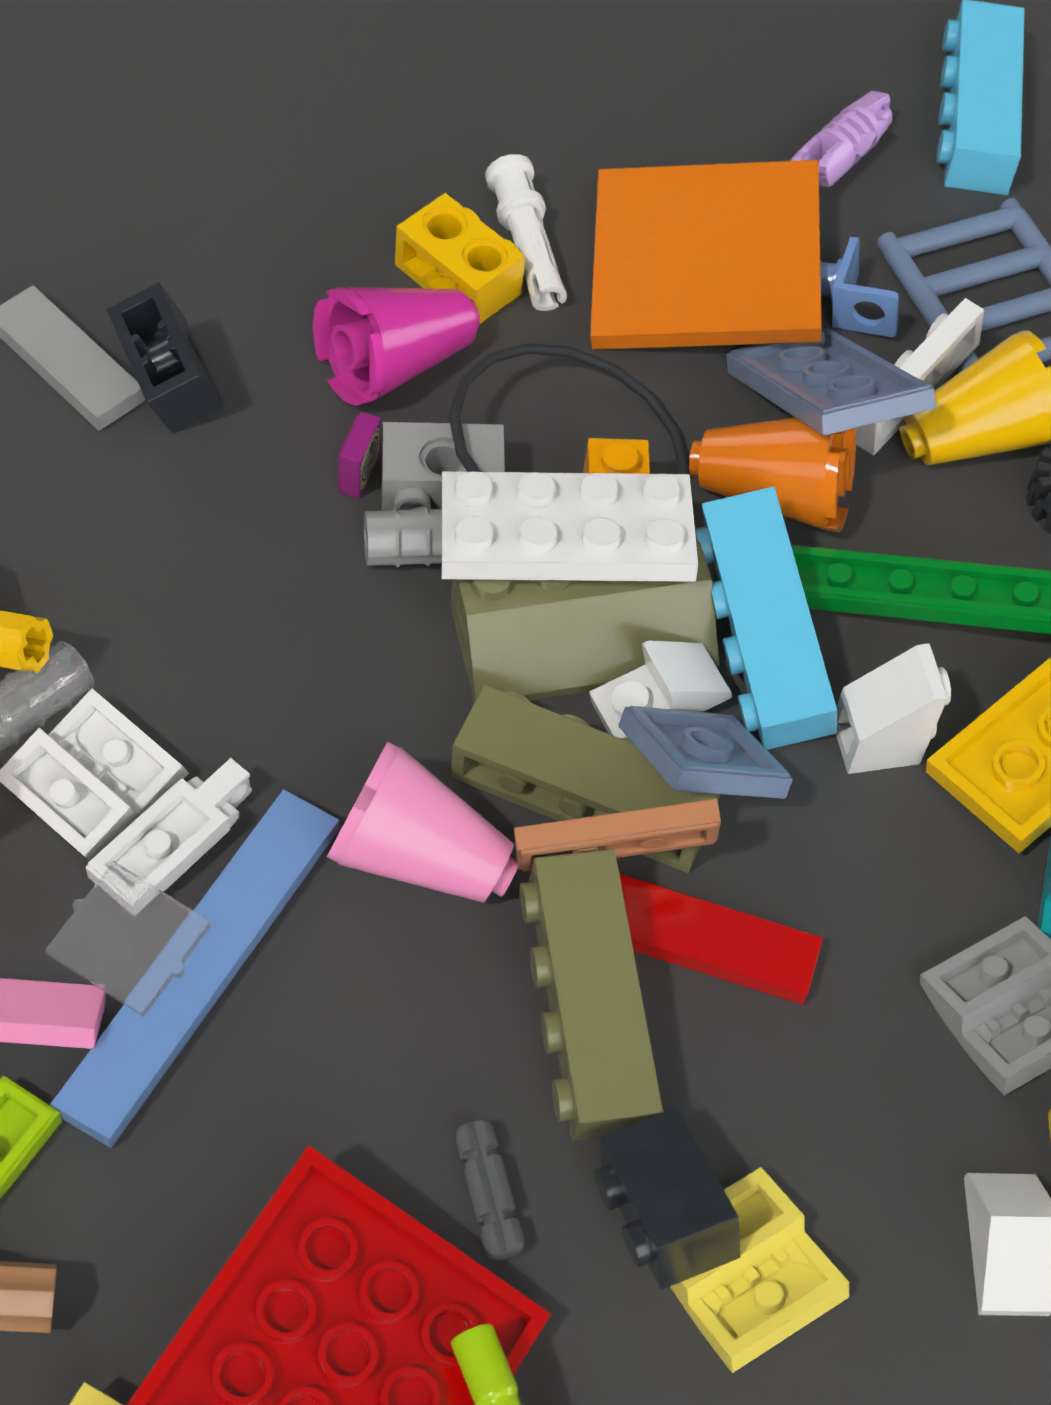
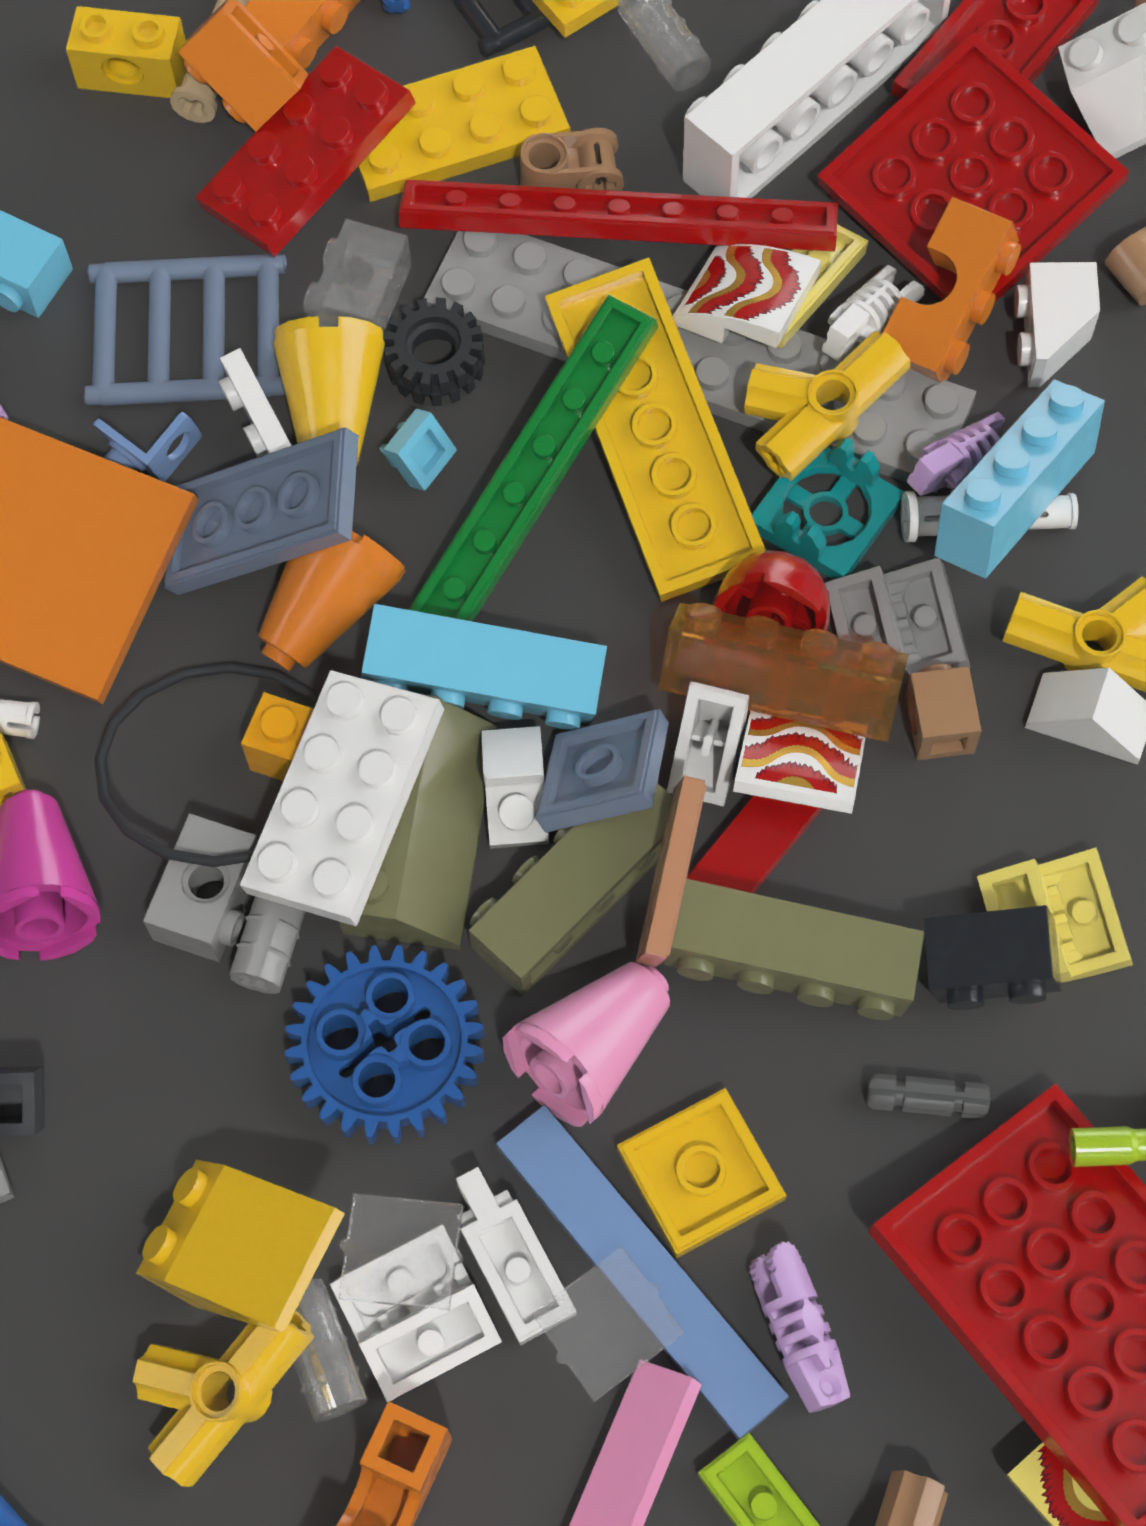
camera: 60 degrees left, 10 degrees up
(92, 577) = (238, 1245): none -> yellow slope
(140, 734) = (401, 1252): none -> clear piece
(182, 1129) = (800, 1331): none -> lavender hinge
(323, 990) = (701, 1173): none -> yellow tile
(347, 664) = (419, 1084): none -> blue gear
(359, 454) = (156, 957): magenta tile -> none
(786, 852) = (710, 739): none -> white slope
(810, 941) = (799, 763): none -> slope
(892, 712) = (616, 600): white slope -> none
(897, 896) = (786, 669): none -> clear orange brick
(932, 1072) = (942, 712): none -> medium nougat brick
(966, 862) = (777, 588): none -> red cylinder
(972, 505) = (419, 449): none -> medium azure tile

